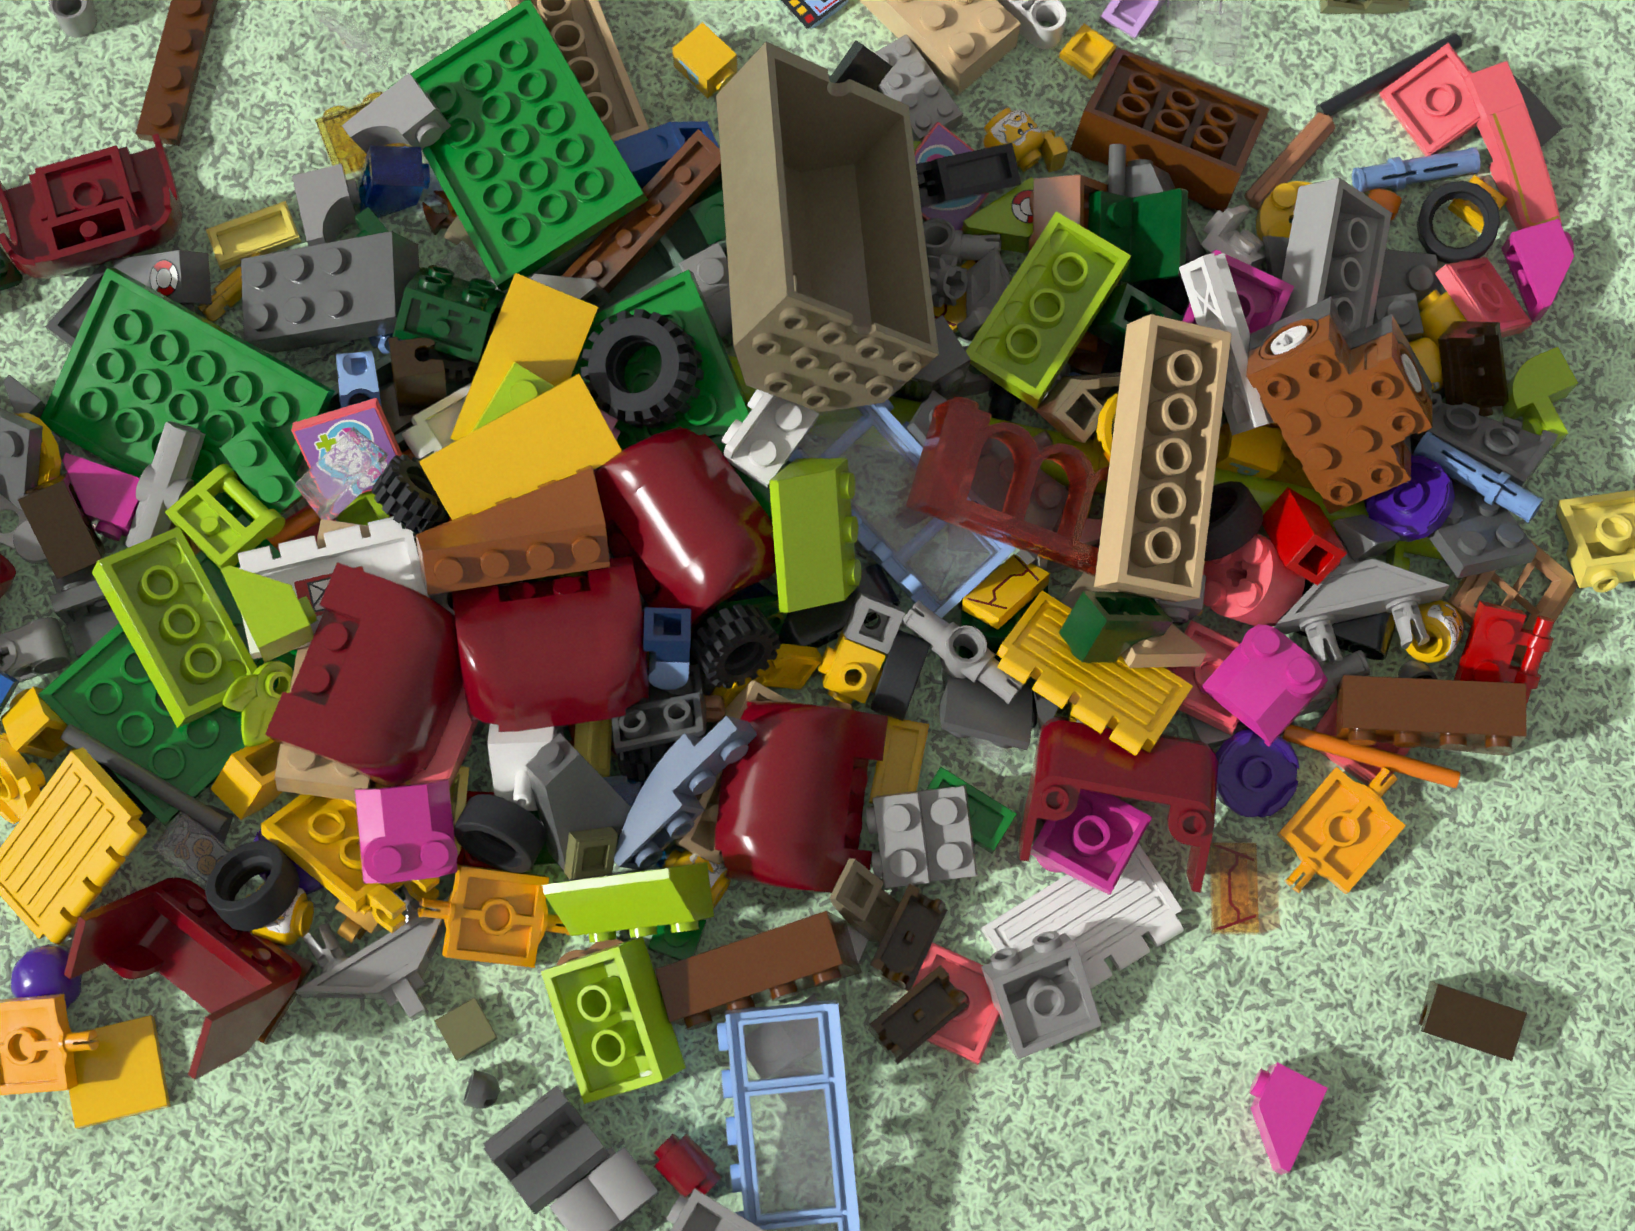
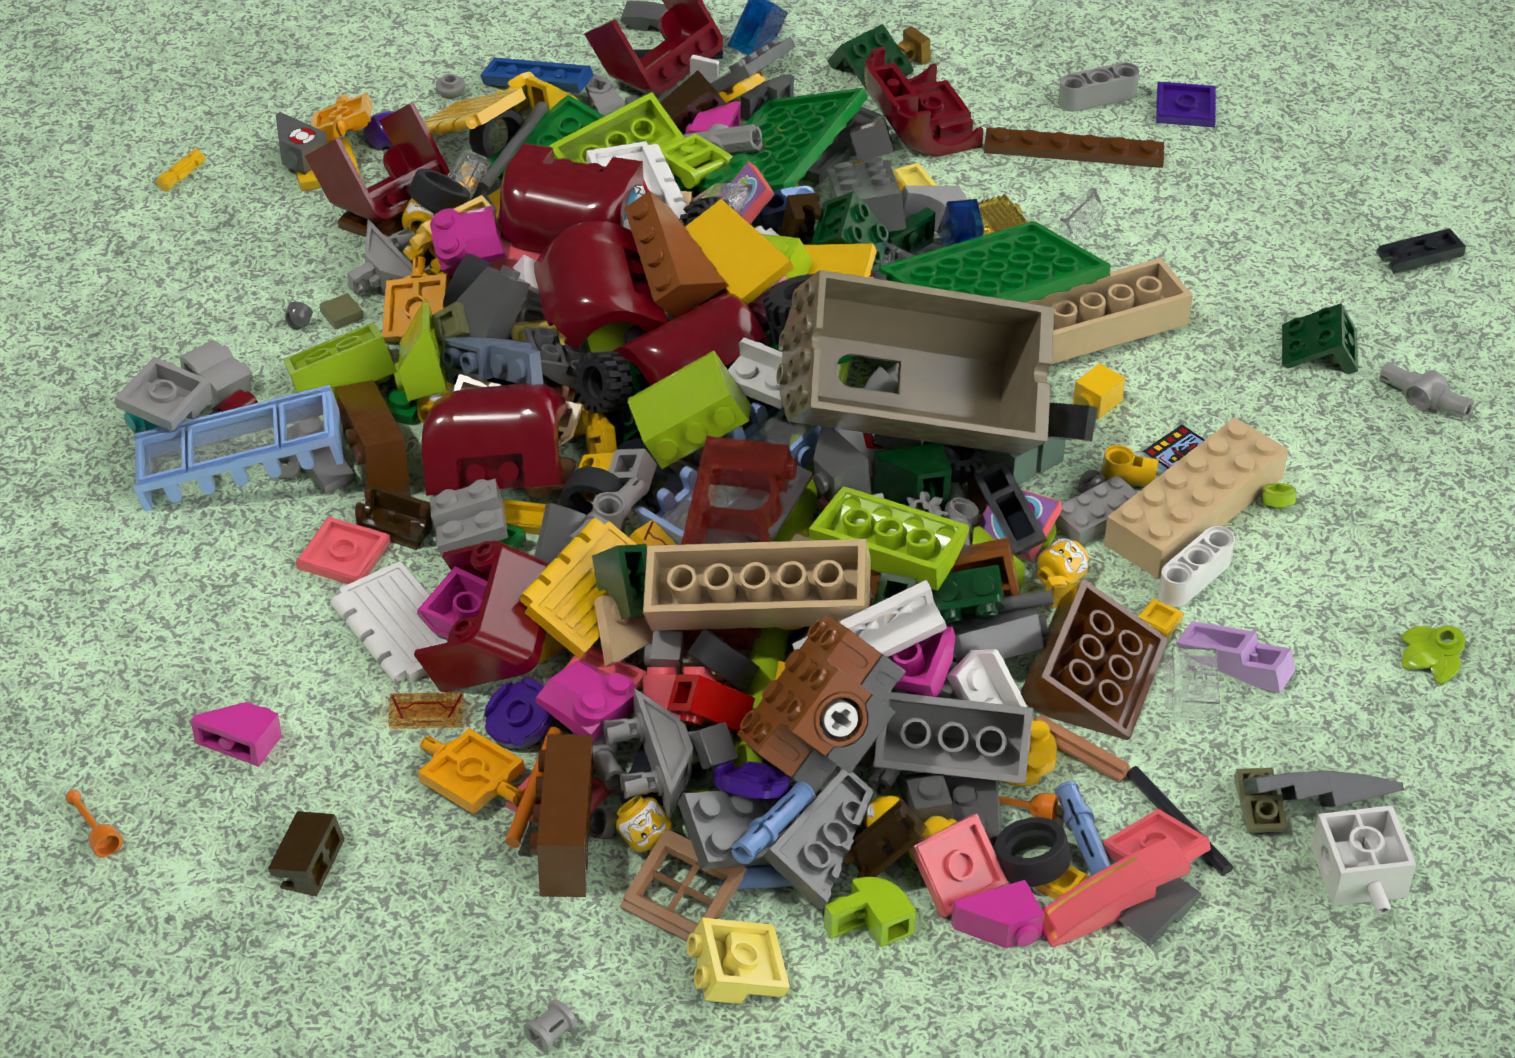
camera: 90 degrees right, 30 degrees down
(92, 1109) = (297, 141): none -> dark grey slope
(271, 612) = (609, 141): lime slope -> none
(398, 116) = (1005, 215): light grey arch -> none
(545, 1150) = (253, 332): dark grey bracket -> none
(668, 646) = (600, 332): dark blue leg -> none
(849, 26) = (1131, 468): none -> yellow piece
(863, 901) = (421, 472): dark tan slope -> none
(918, 1015) = (332, 514): dark brown hinge -> none
(1041, 993) = (343, 579): light grey plate -> none
(1493, 643) = (629, 866): red plate -> none

